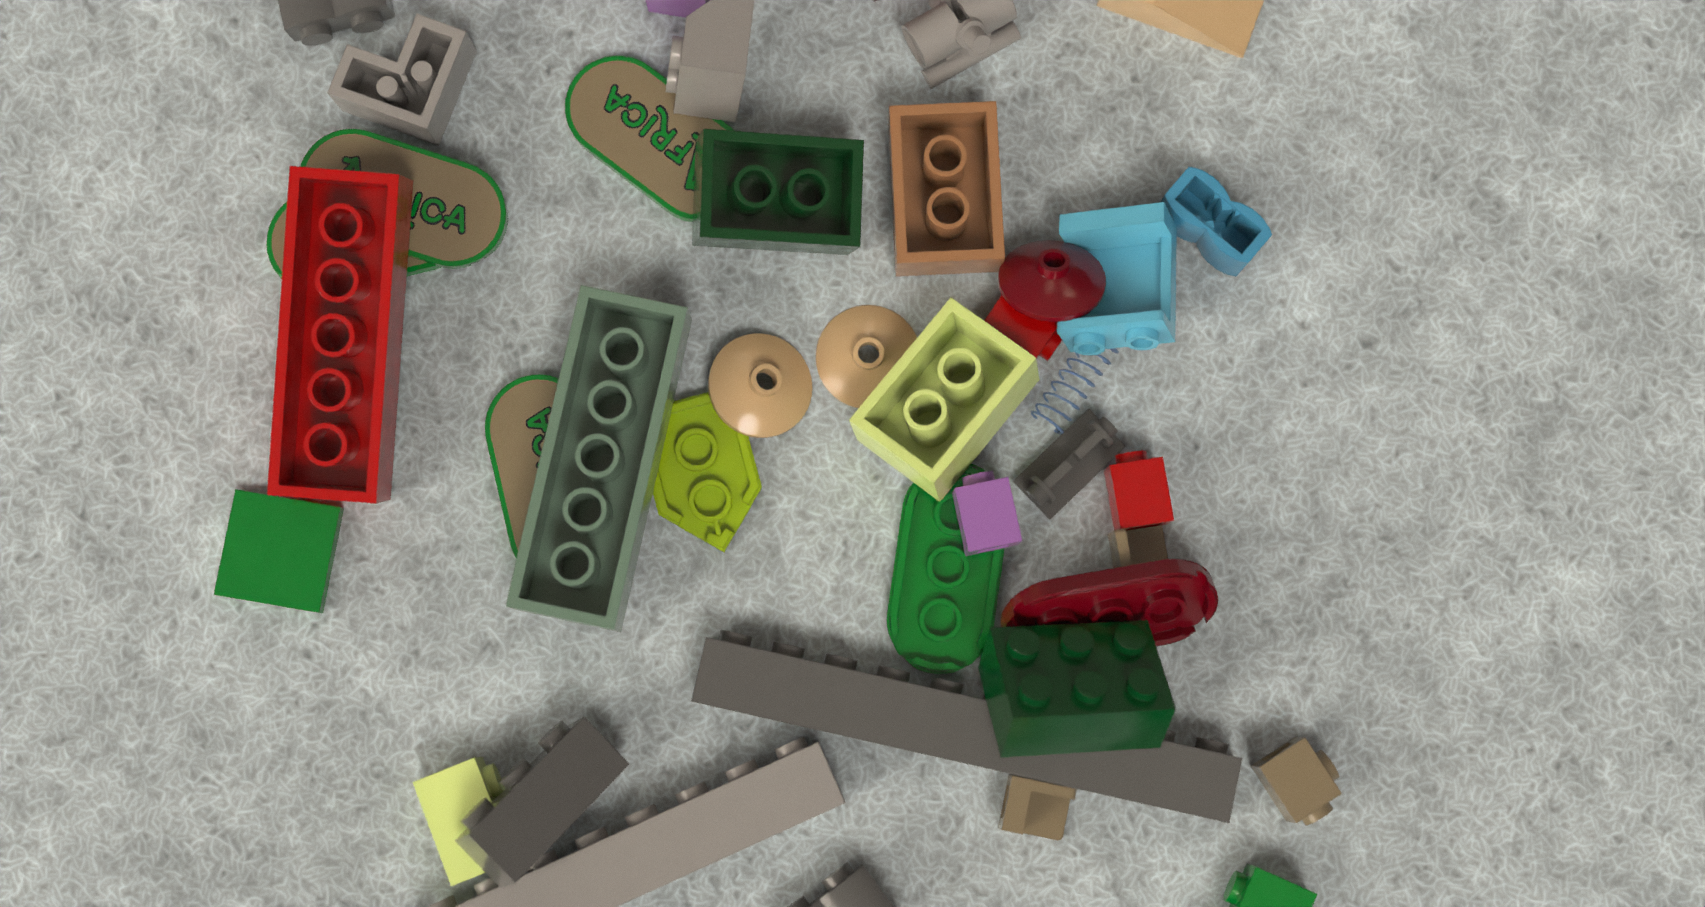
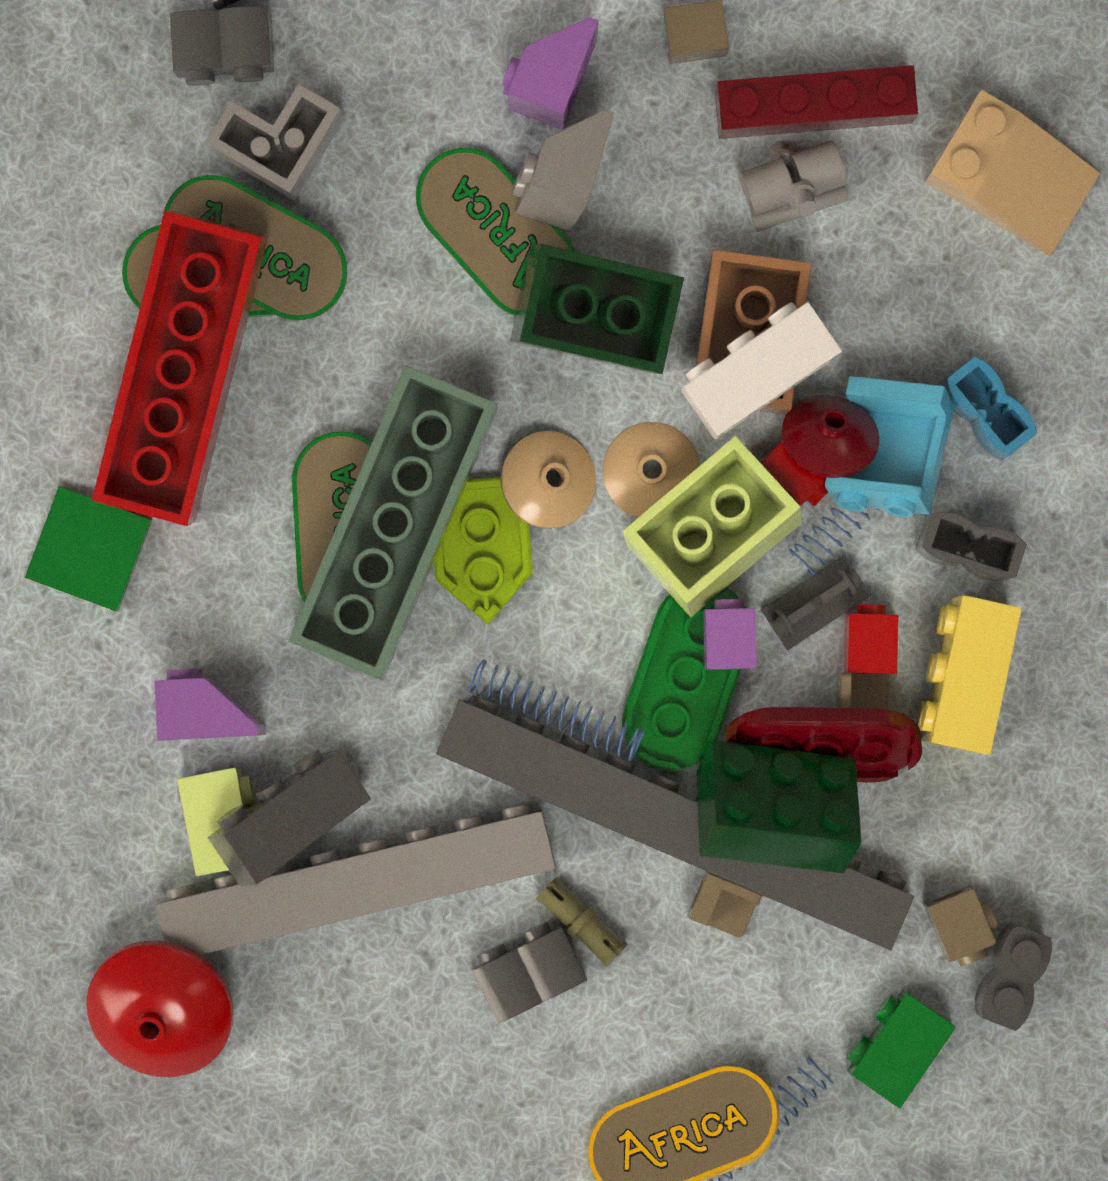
camera: 10 degrees right, 5 degrees up
(423, 700) = (200, 709): none -> medium lavender slope
(885, 855) = (581, 921): none -> olive pin
(904, 645) = (635, 737): none -> medium blue piece
(963, 217) = (760, 368): none -> white brick
(1239, 373) = (985, 552): none -> dark grey brick
(1252, 505) = (968, 674): none -> light yellow brick
(1364, 840) = (1008, 988): none -> dark grey brick

